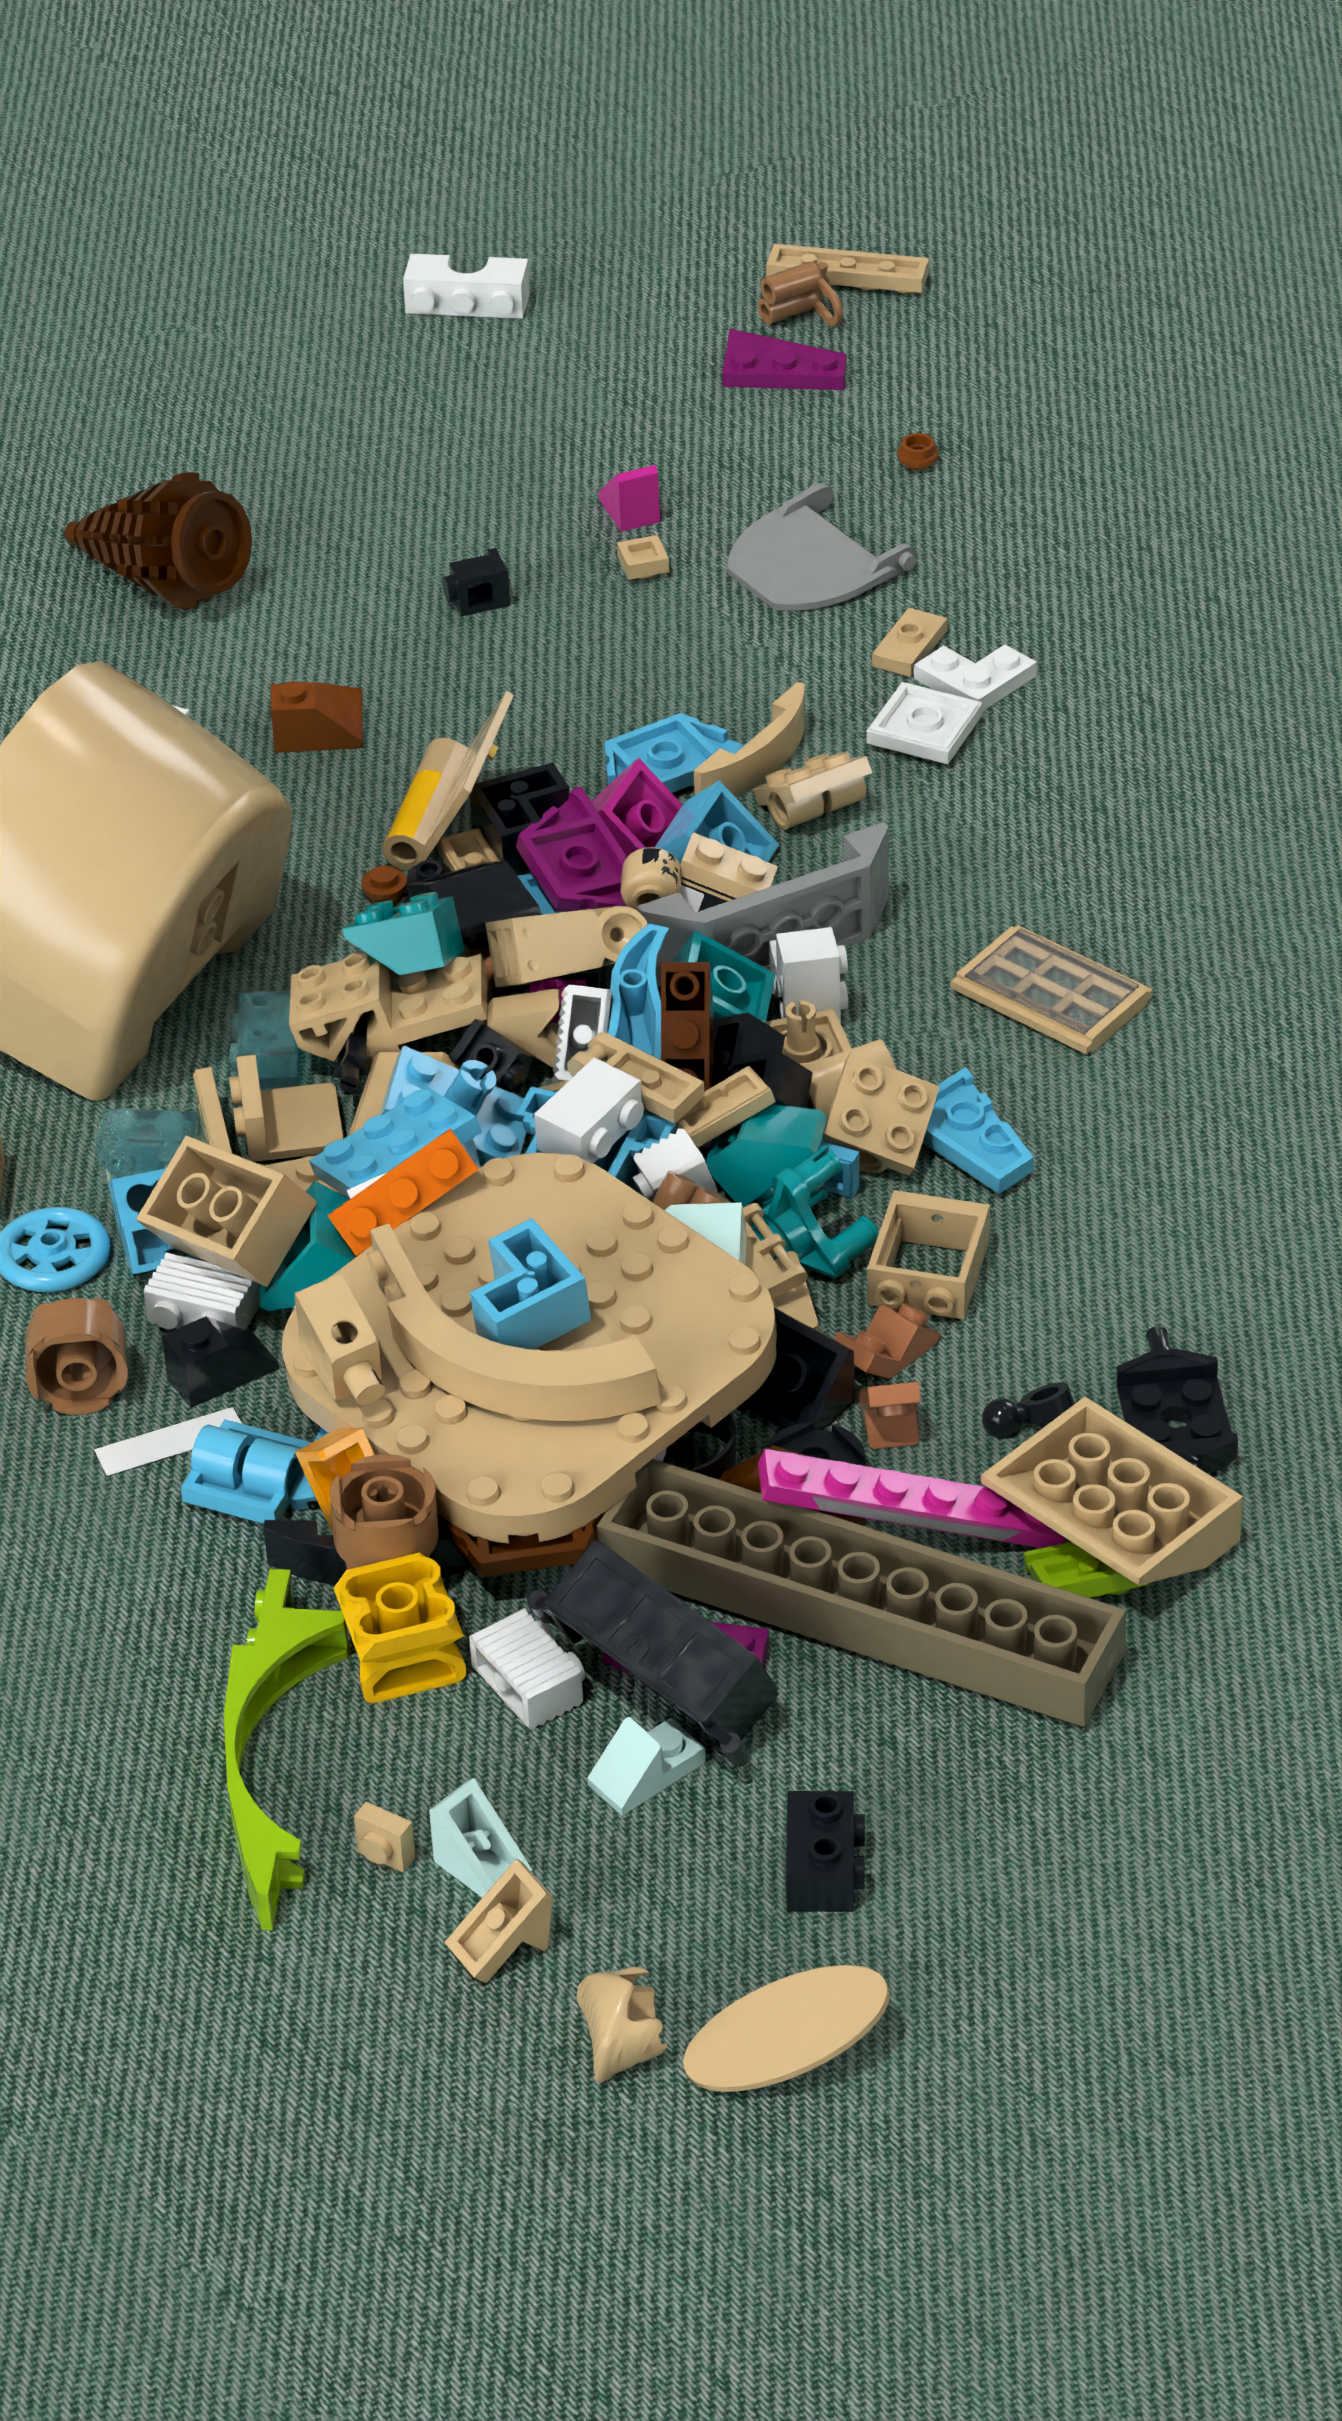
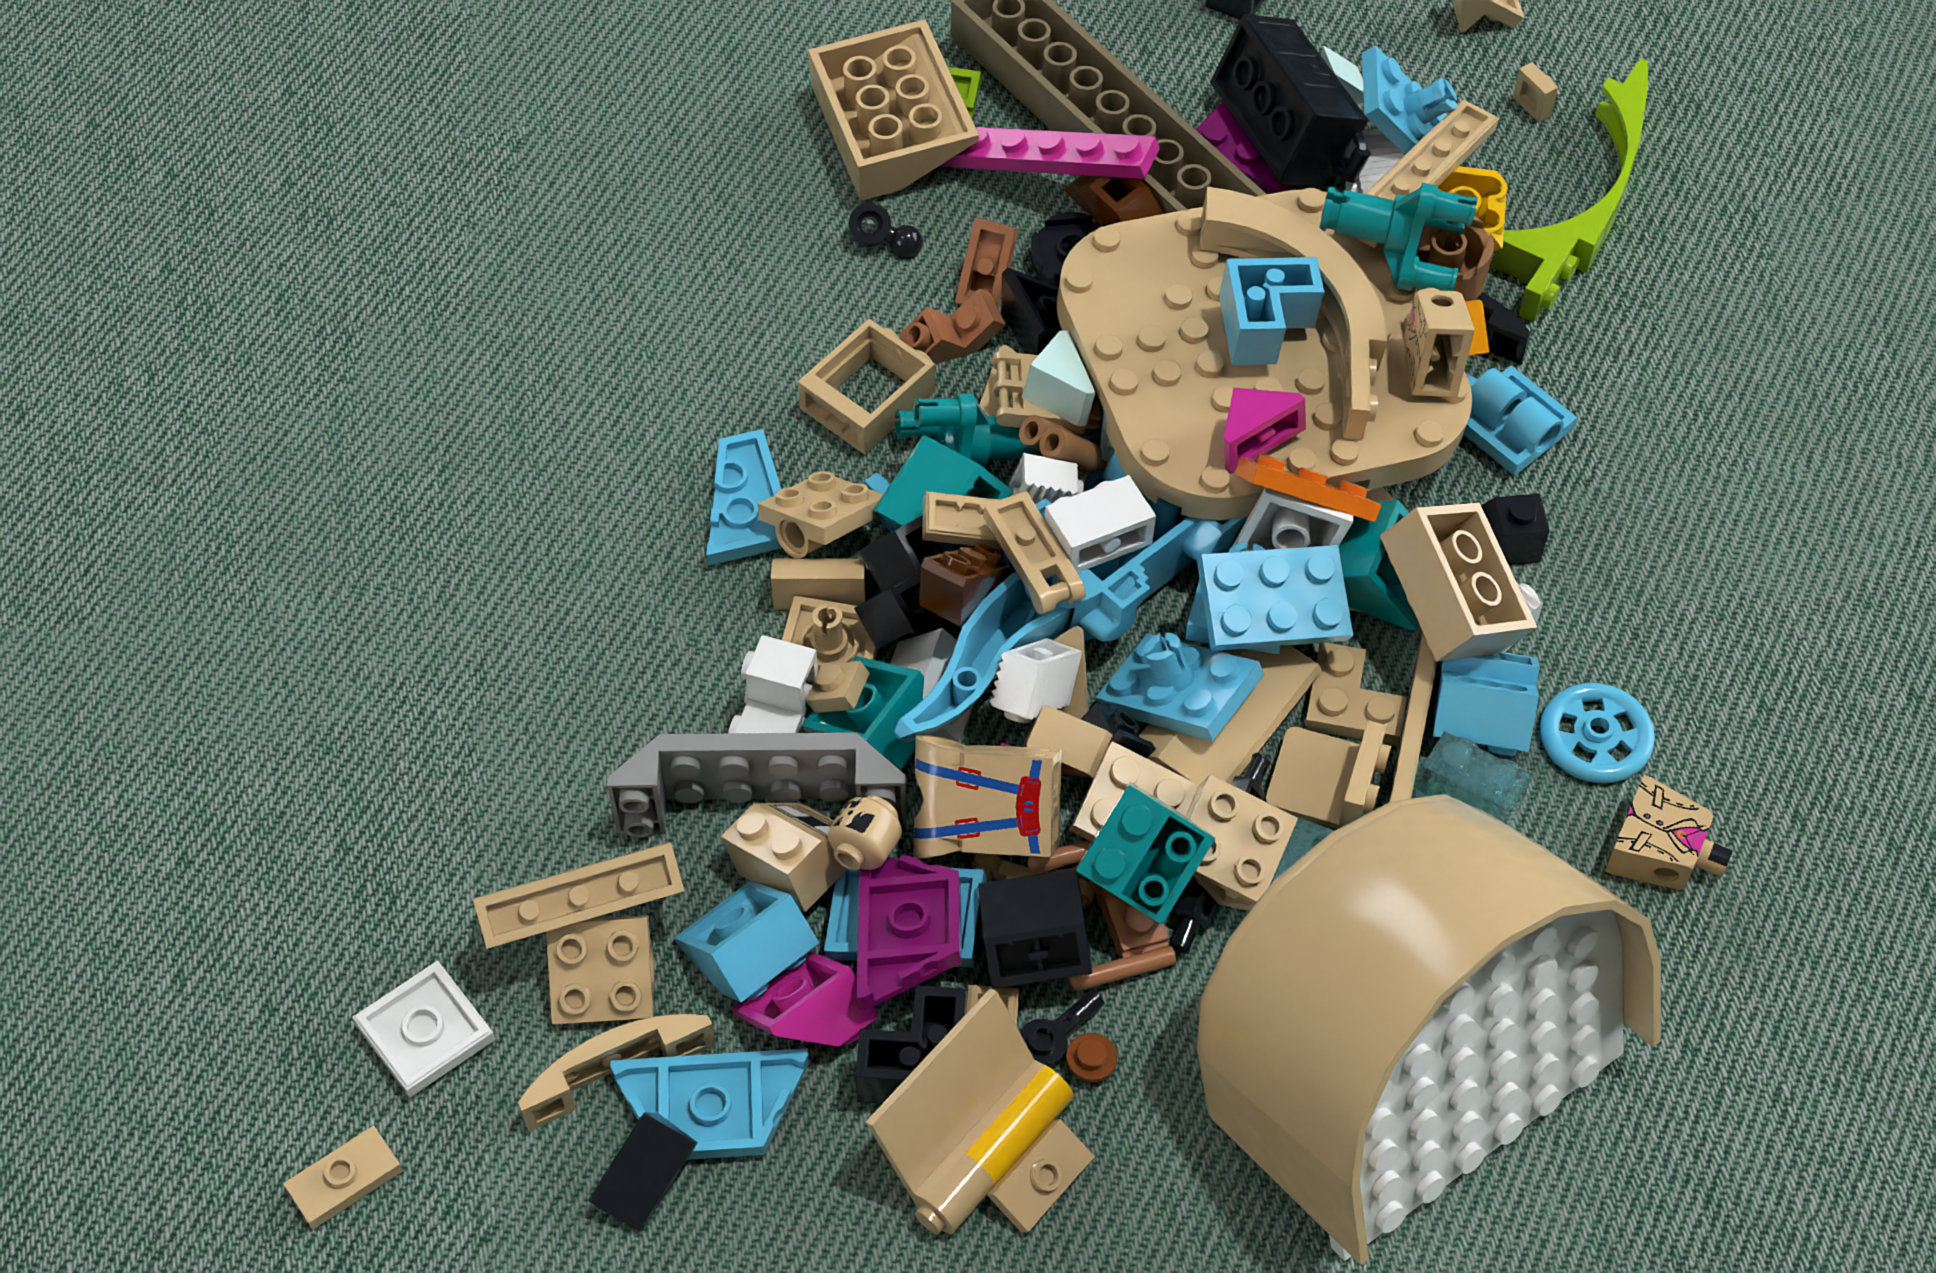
camera: 155 degrees left, 15 degrees up
(75, 1354) = (1625, 559): medium nougat brick -> none
(159, 1443) = (1570, 497): white sticker -> none
(379, 805) = (1040, 1175): none -> tan plate
(432, 1427) = (1399, 227): none -> teal wheel
(455, 1580) = (1437, 153): none -> tan tile
(471, 1839) = (1477, 67): light aqua slope -> none
(478, 1204) = (1260, 423): none -> dark pink slope
(515, 1690) = (1401, 106): none -> medium azure plate
(685, 699) = (643, 1170): none -> black slope
(757, 985) = (837, 687): none -> tan plate
(853, 760) = (578, 895): none -> tan fence
(980, 681) = (318, 1075): white plate -> none
(1051, 989) = (561, 635): clear piece -> none
(1180, 1388) = (786, 155): black plate -> none

